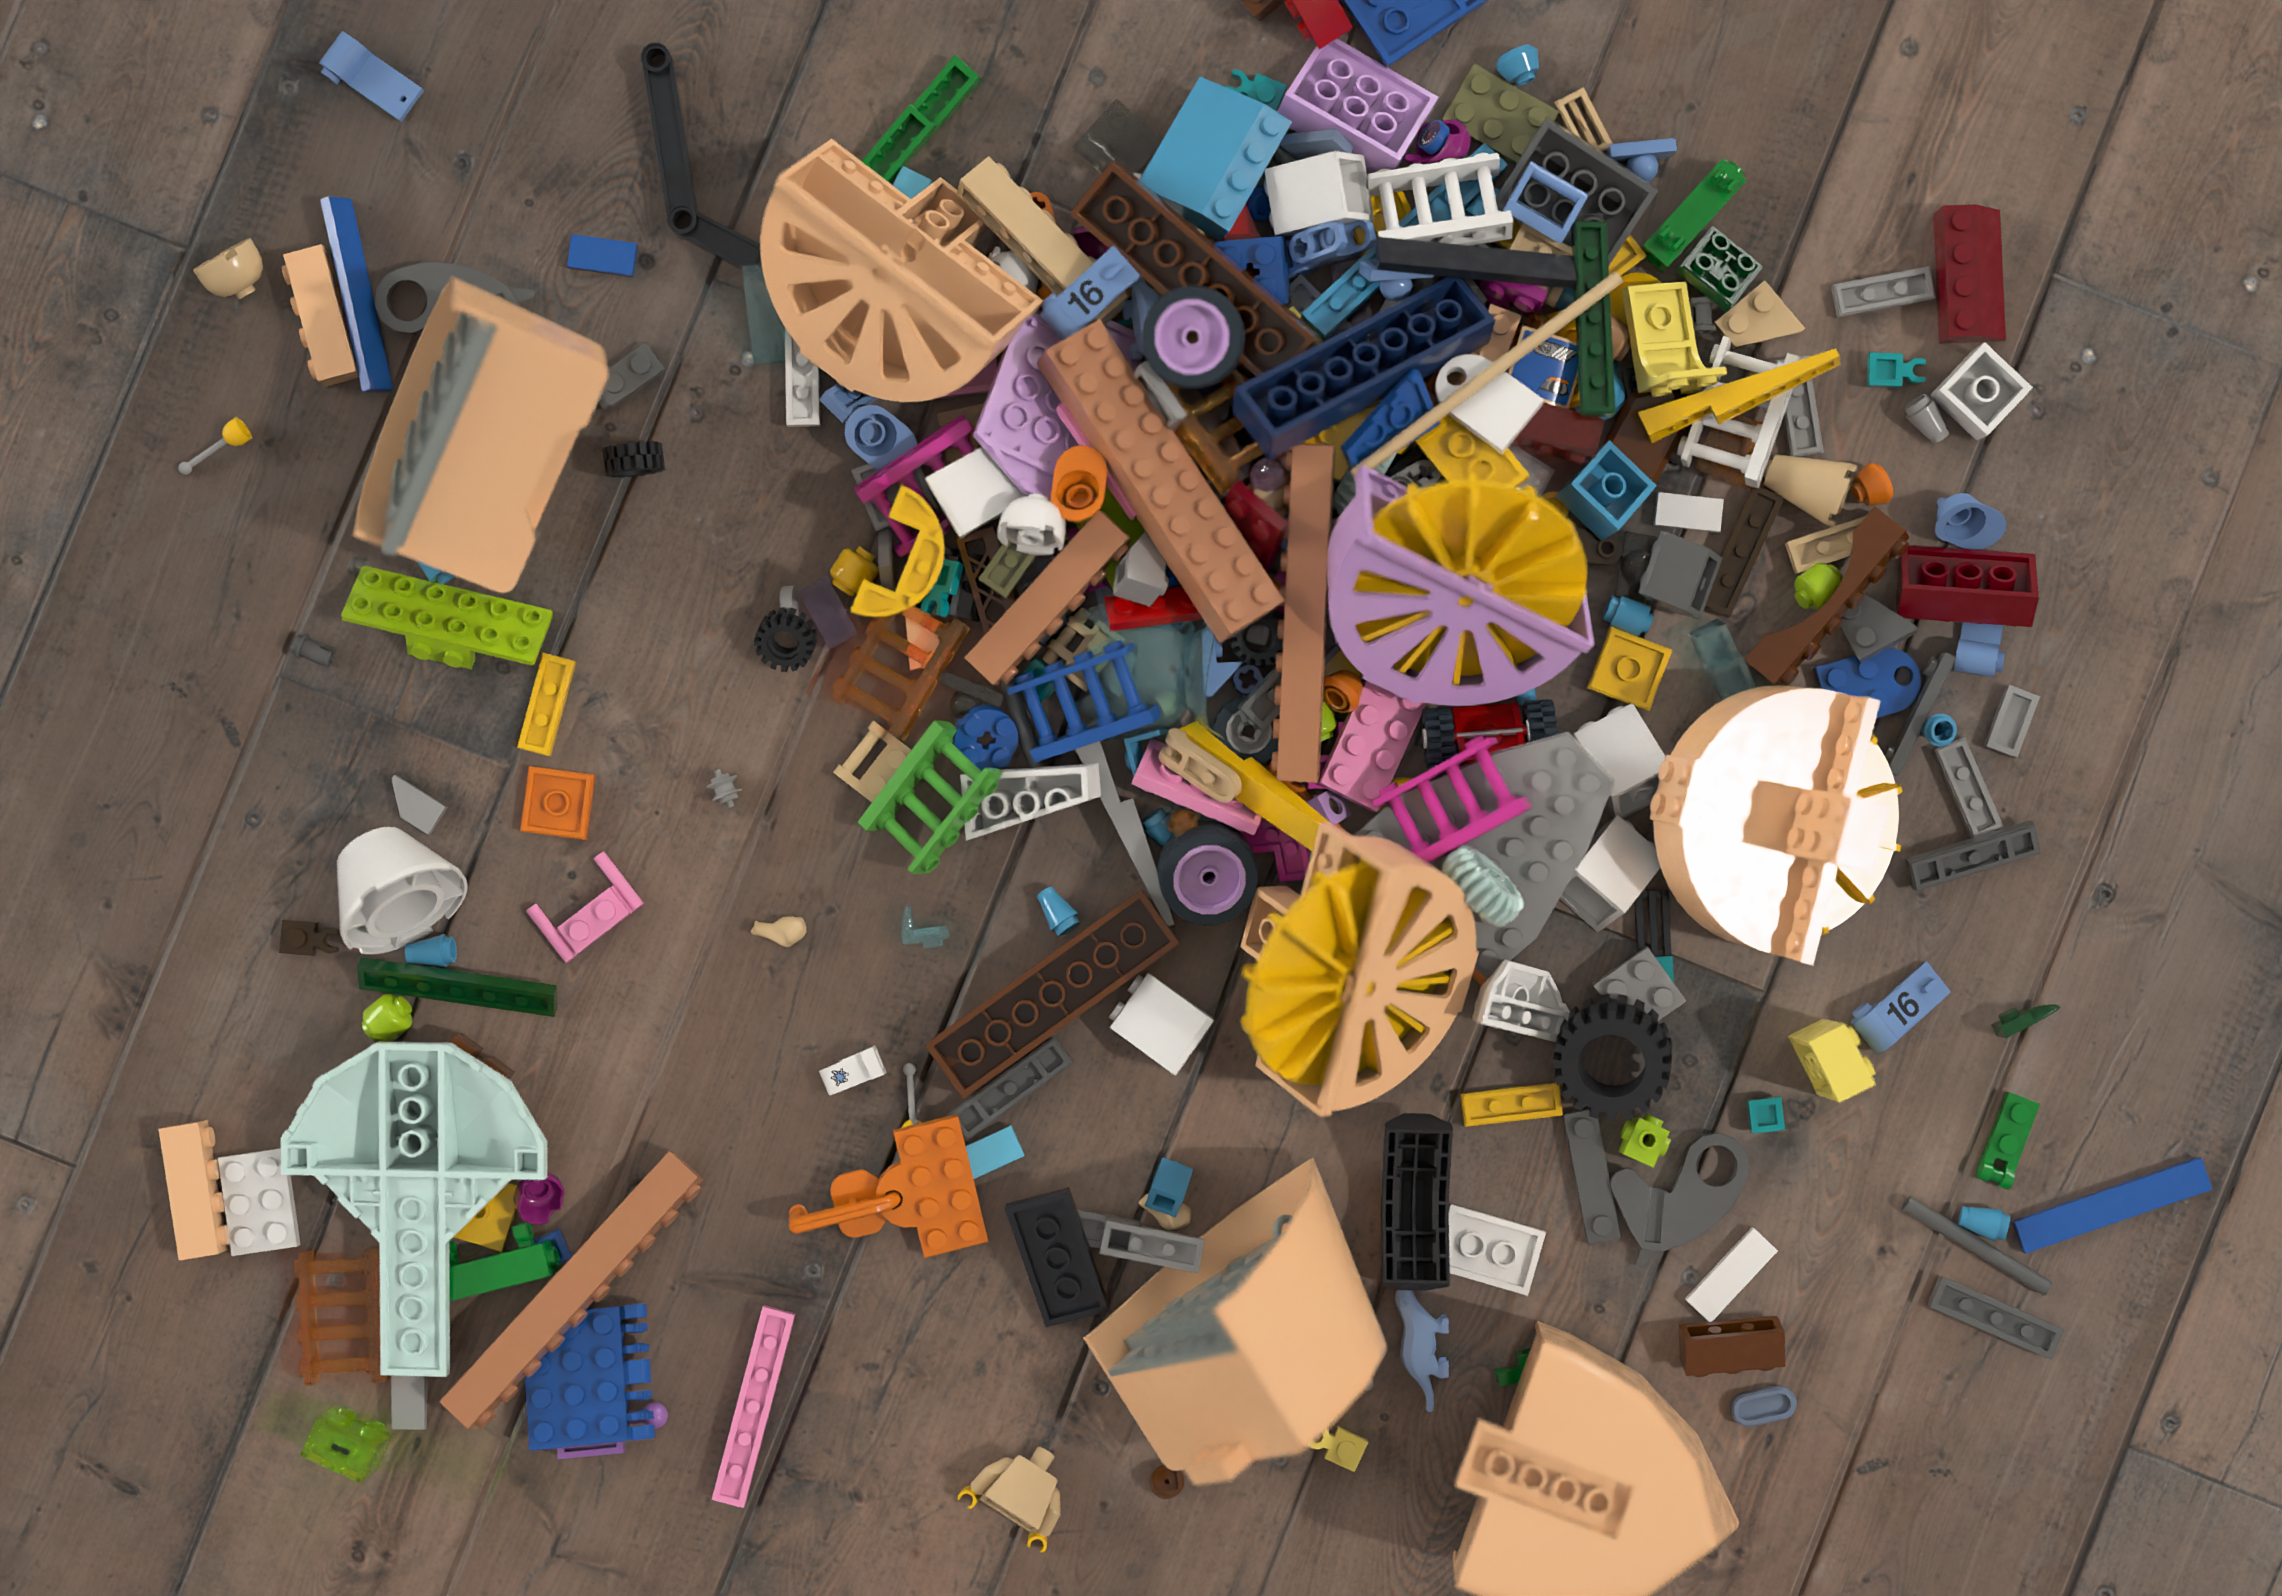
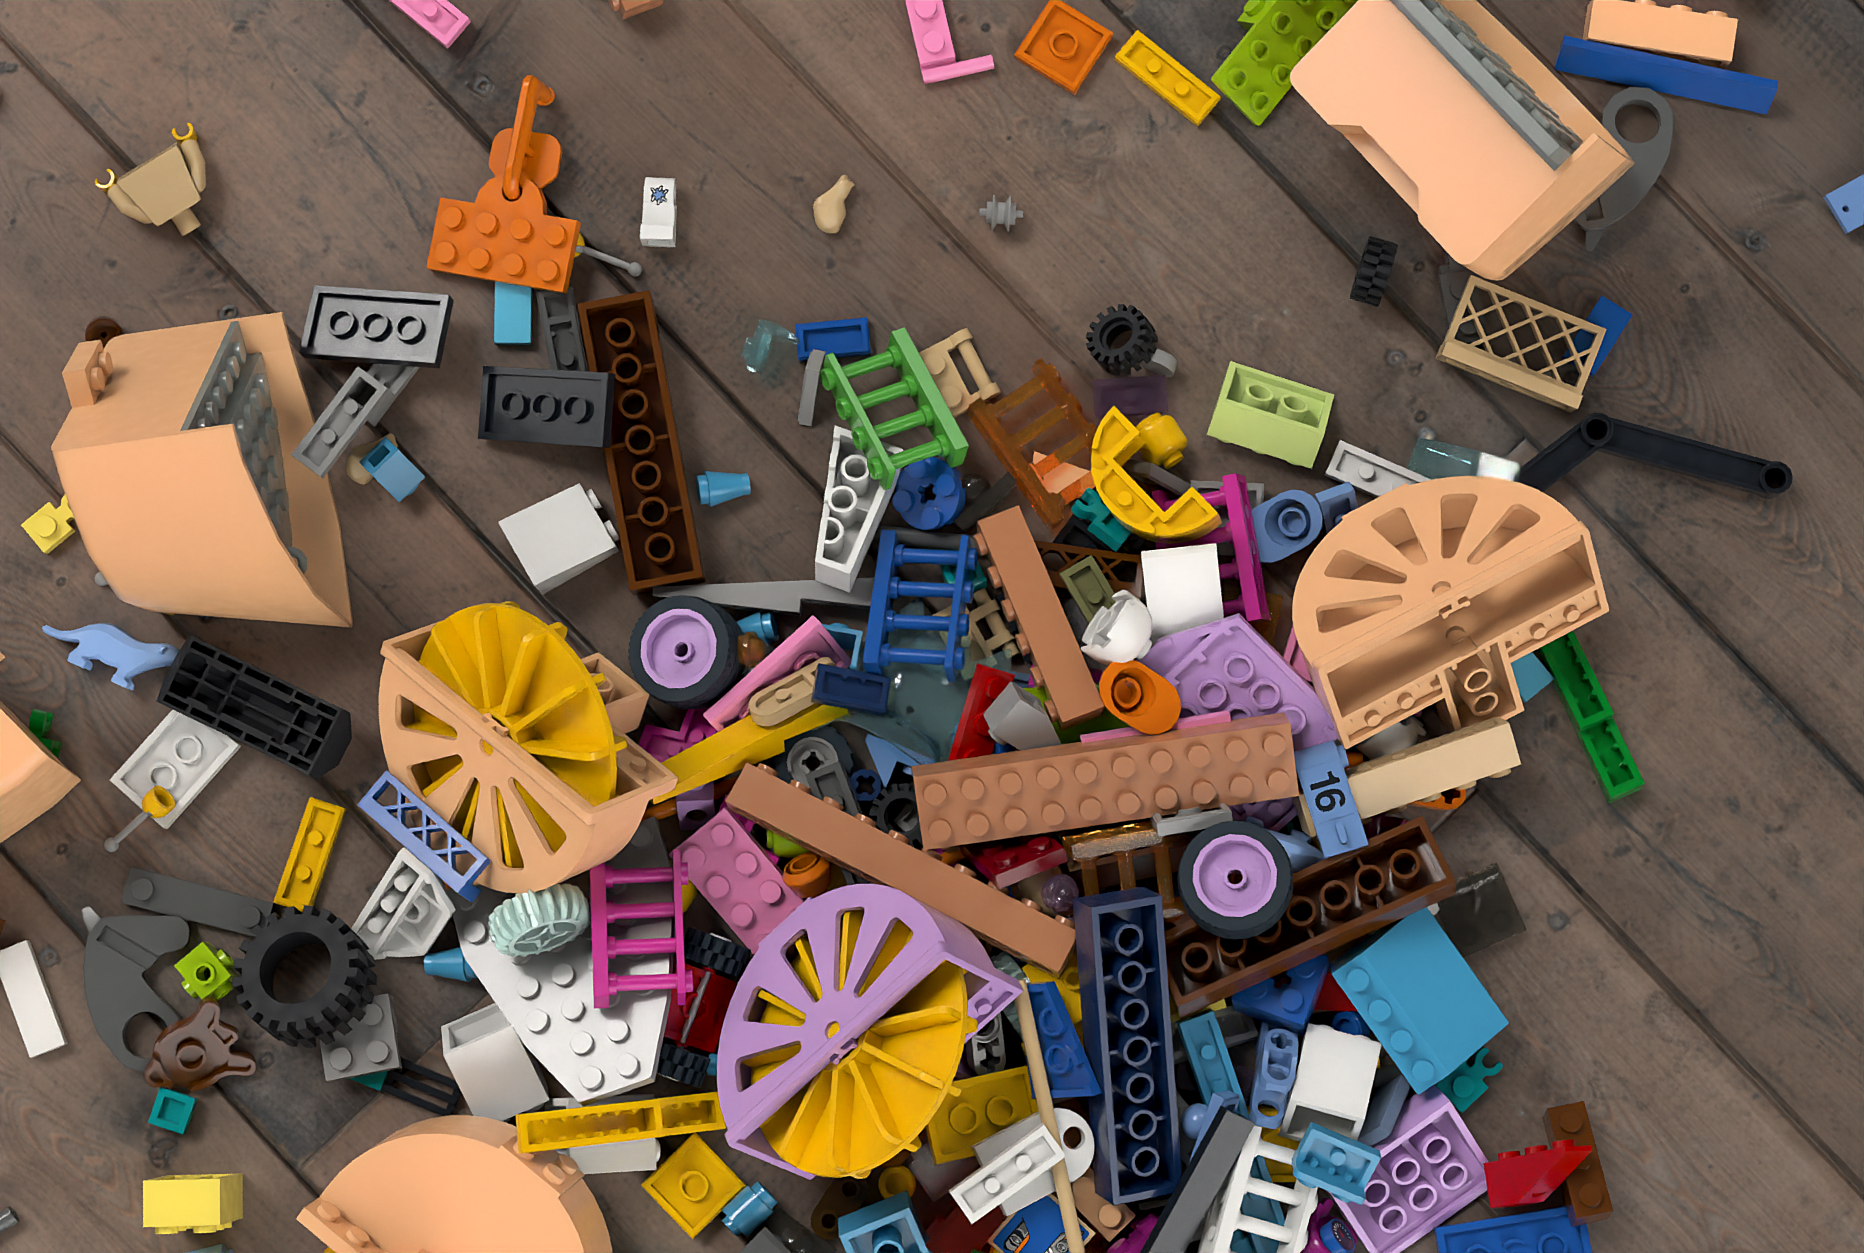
camera: 120 degrees right, 5 degrees down
(666, 304) = (1514, 375): none -> tan fence
(791, 490) = (1271, 415): none -> yellowish green slope
(892, 878) = (840, 337): none -> blue tile
(941, 876) = (811, 387): none -> light grey tile
(1059, 1083) = (546, 406): none -> black plate
(1178, 723) = (851, 689): none -> dark blue plate
(1379, 161) = (1334, 1163): none -> dark azure bracket
(1468, 1011) = (422, 846): none -> fence
(1511, 413) = (1007, 1173): none -> white plate
(1530, 1247) = (155, 803): none -> yellow hinge
(1546, 948) = (449, 965): none -> dark azure cone
(1611, 745) = (618, 1122): none -> yellow slope
(1710, 1116) = (197, 1051): none -> reddish brown tile

